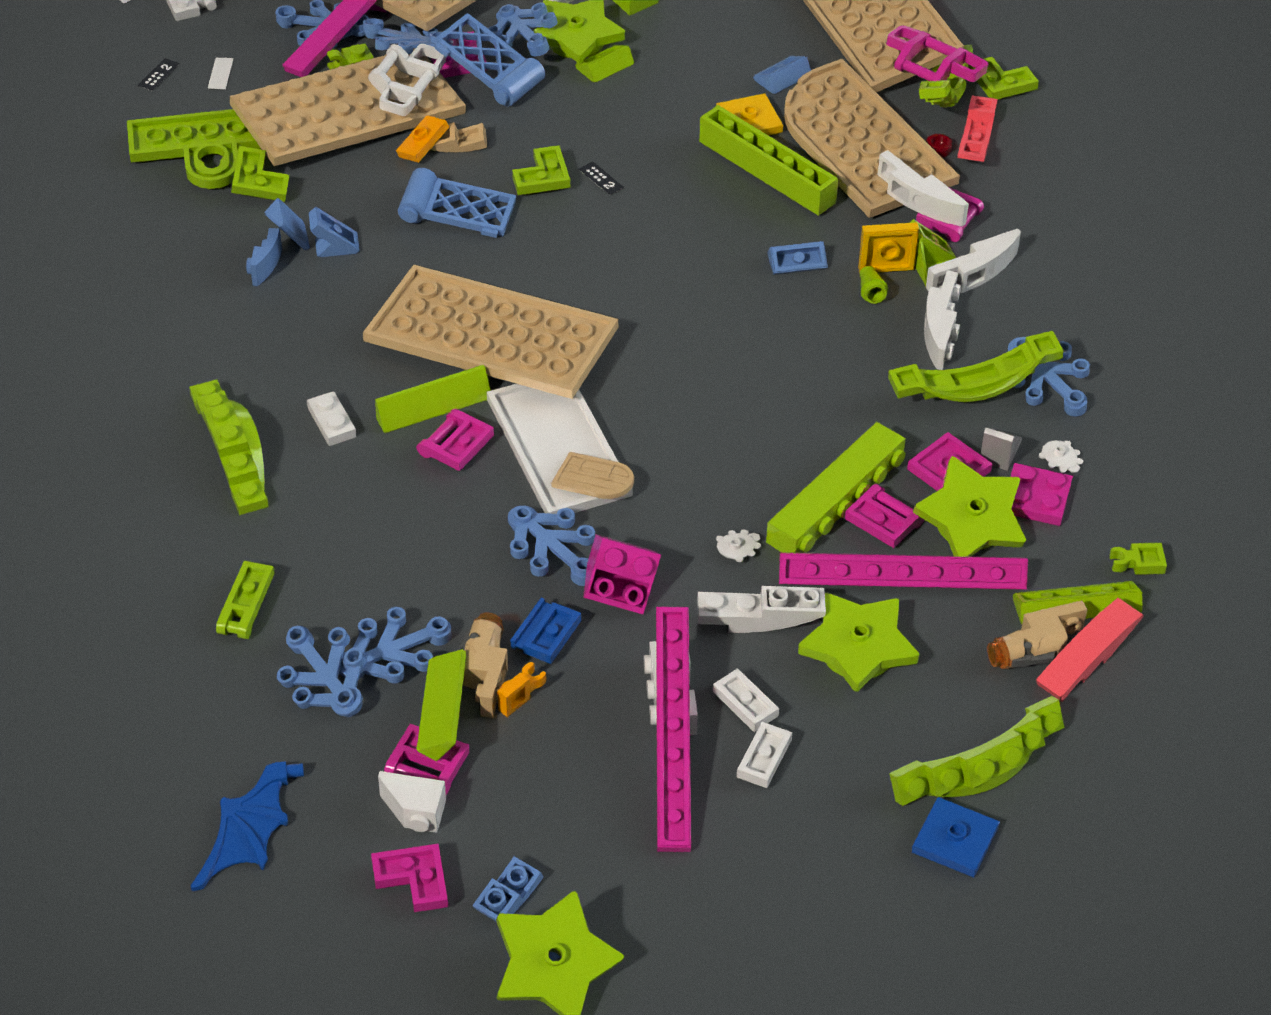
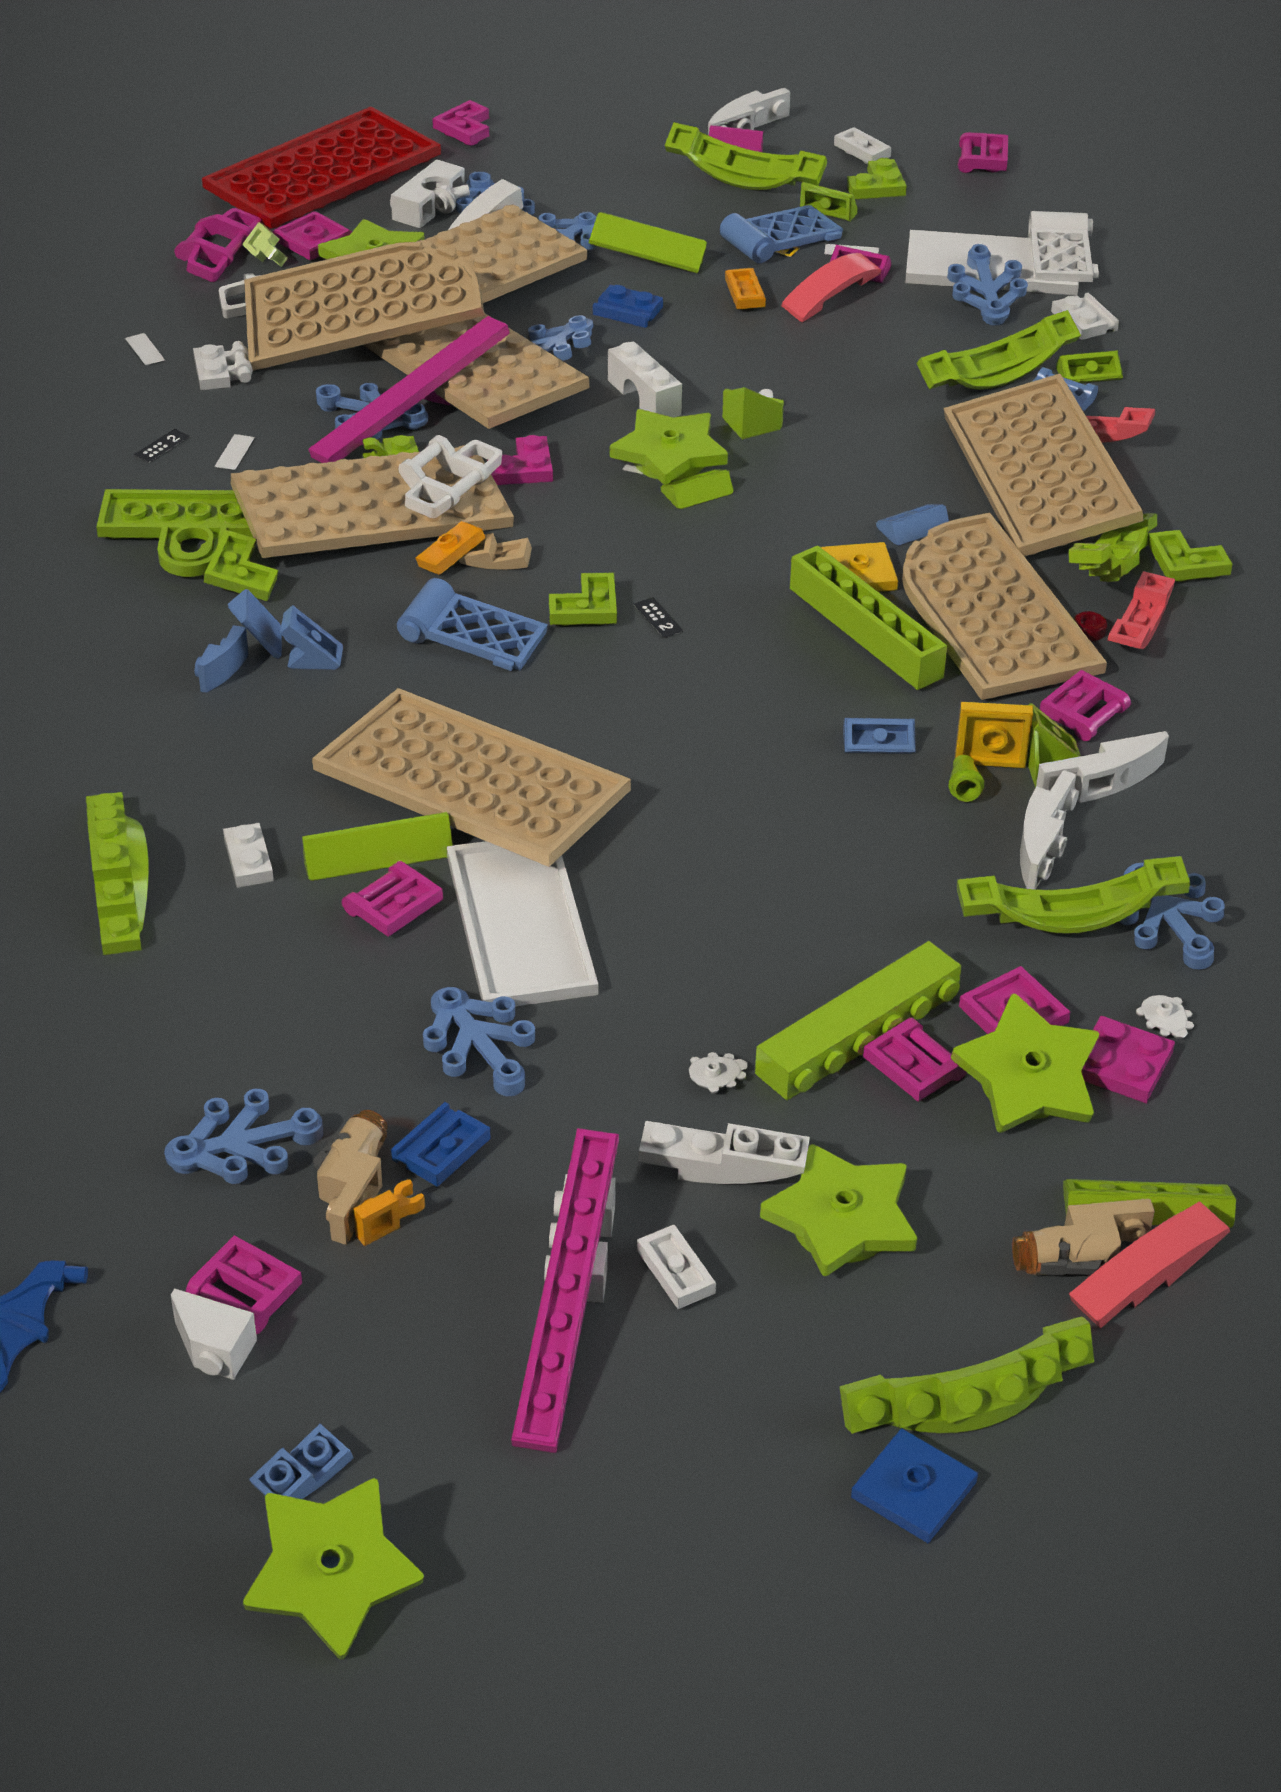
camera: 10 degrees right, 5 degrees down
(245, 599) = (75, 1056): lime plate -> none
(325, 673) = (164, 1193): medium blue plant -> none
(407, 38) = (459, 436): medium blue plant -> none
(413, 866) = (191, 1420): dark pink plate -> none
(441, 704) = (276, 1216): lime slope -> none
(510, 83) = (577, 493): medium blue piece -> none
(511, 17) = (598, 428): medium blue plant -> none
(593, 476) = (552, 964): tan window -> none
(620, 574) = (551, 1086): dark pink slope -> none
(764, 754) = (682, 1340): white plate -> none
(903, 570) = (923, 1131): dark pink tile -> none
(921, 194) = (1051, 677): white slope -> none
(951, 64) = (1122, 528): dark pink bar -> none
(999, 447) = (1085, 993): light grey slope -> none
(1142, 557) = (1246, 1156): lime plate -> none

